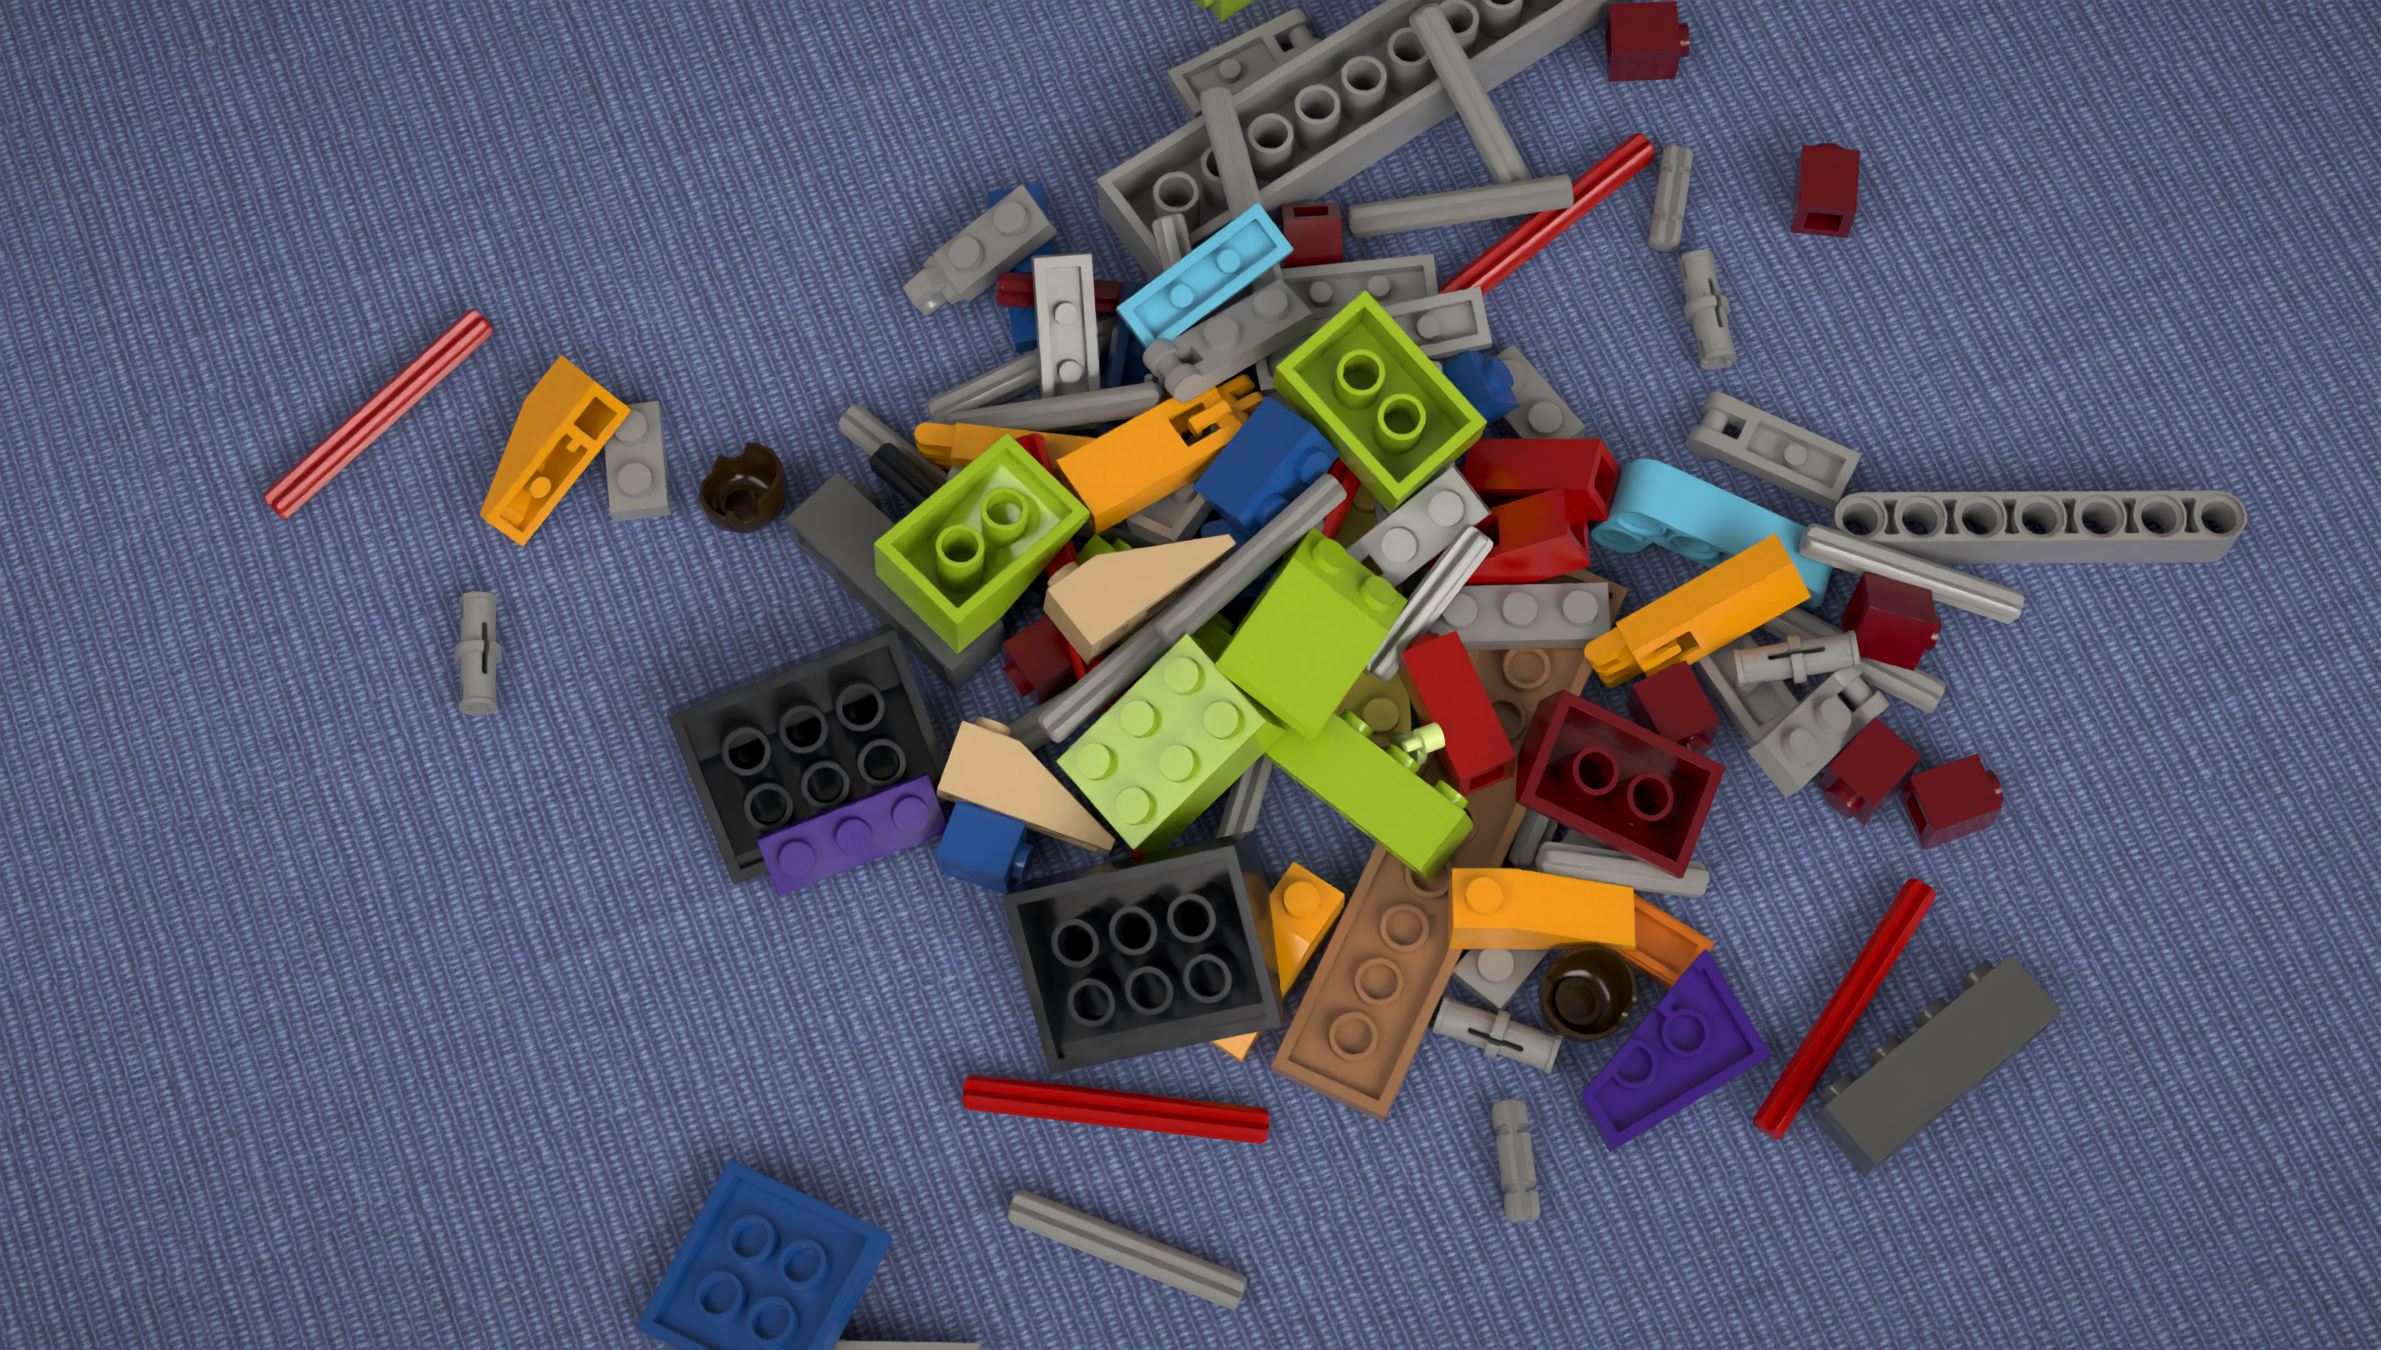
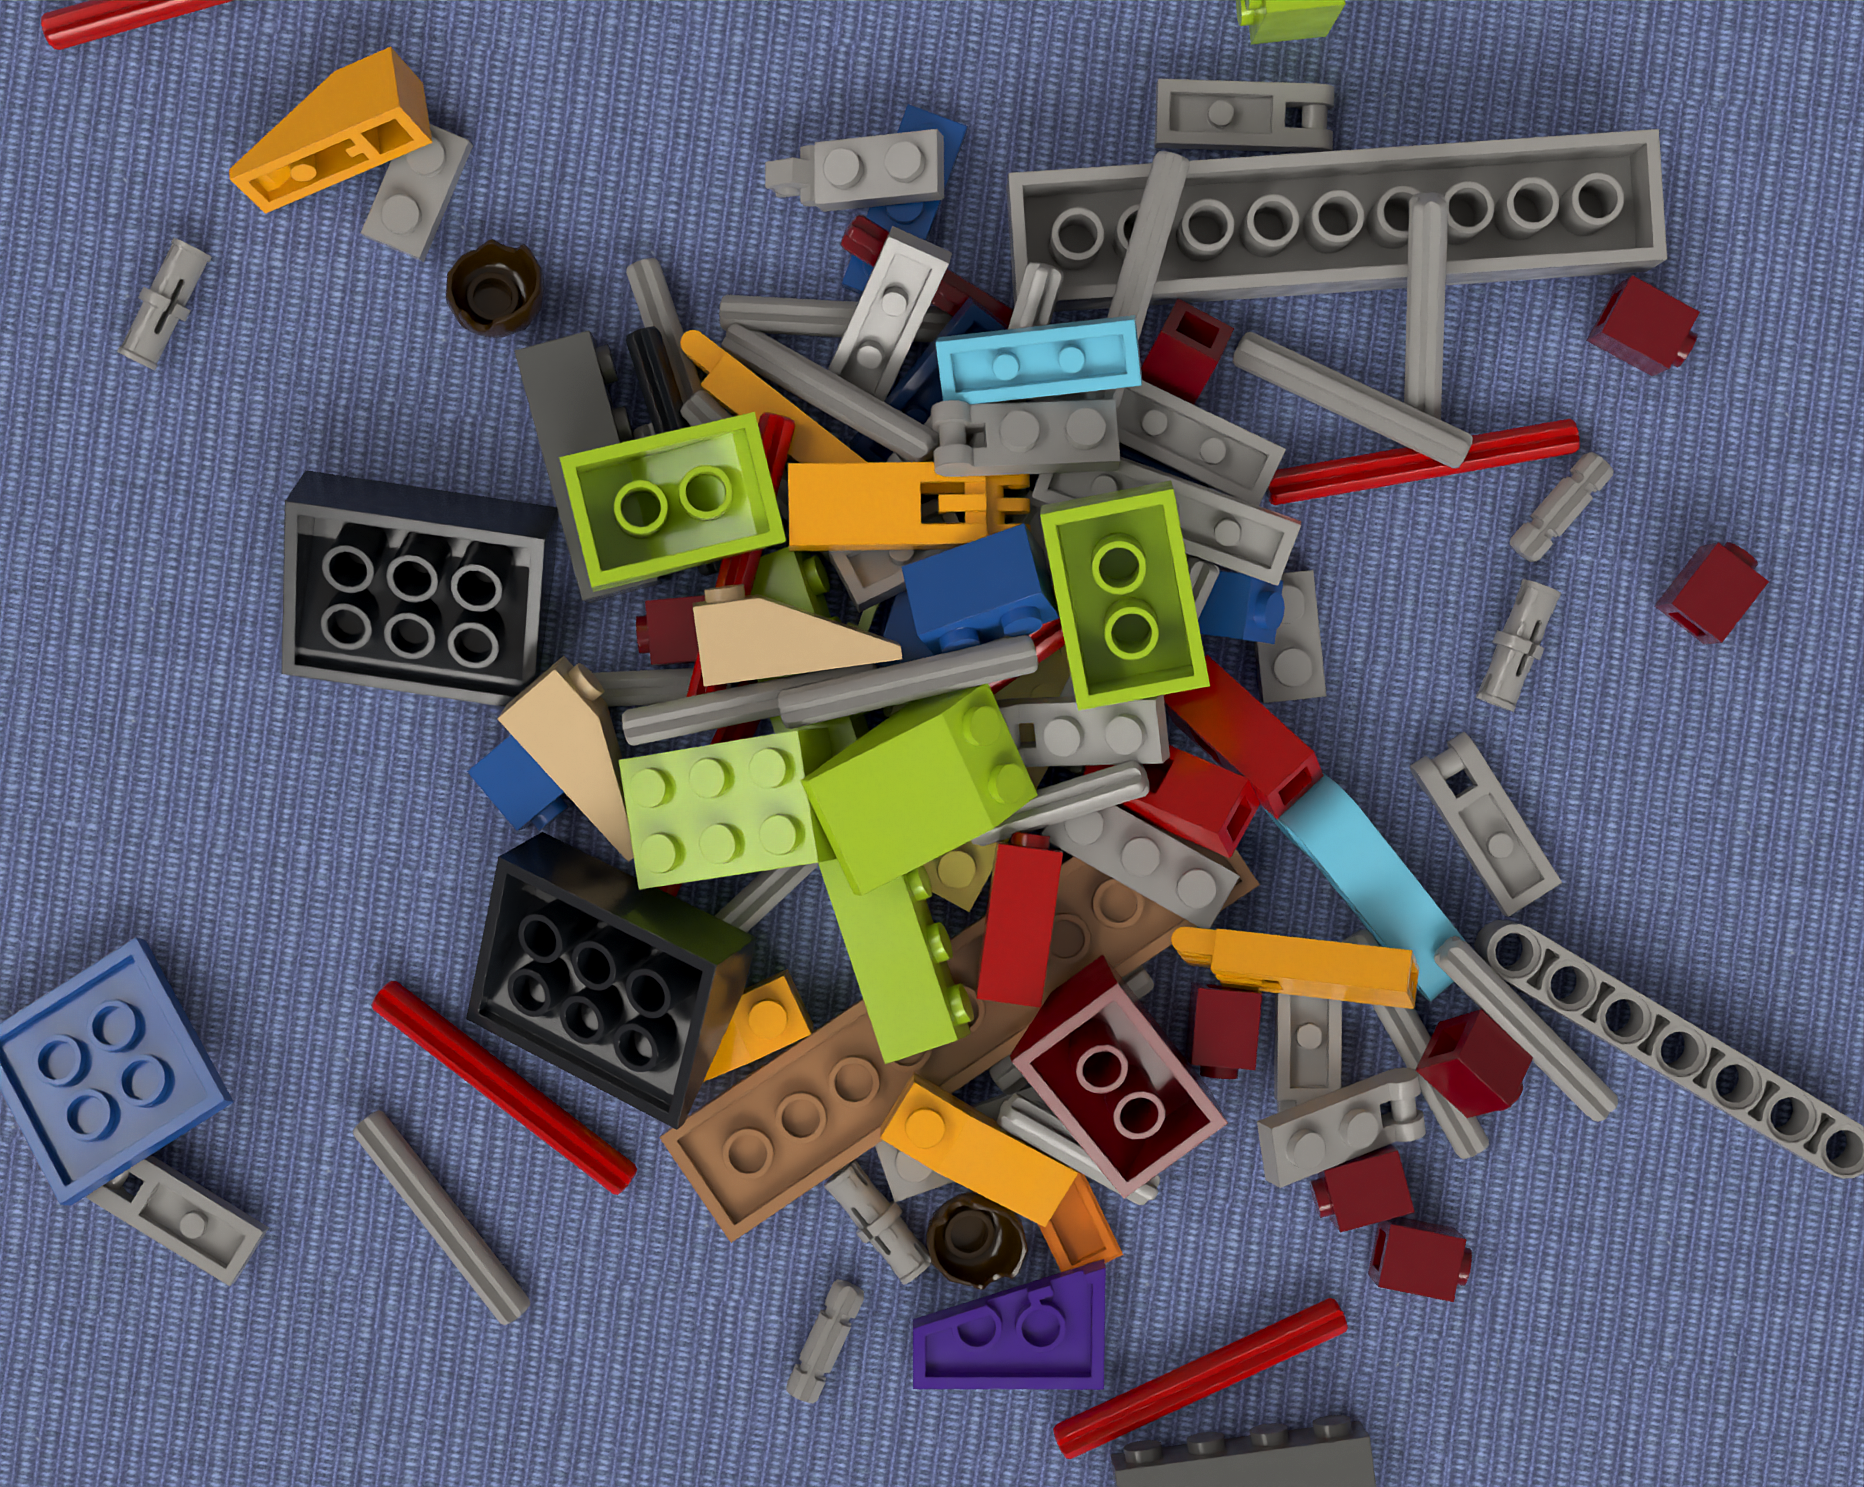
camera: 30 degrees right, 20 degrees up
(852, 834) = (410, 693): dark purple plate -> none
(1419, 742) = (968, 941): yellowish green piece -> none
(1797, 658) = (1403, 1077): light grey pin -> none

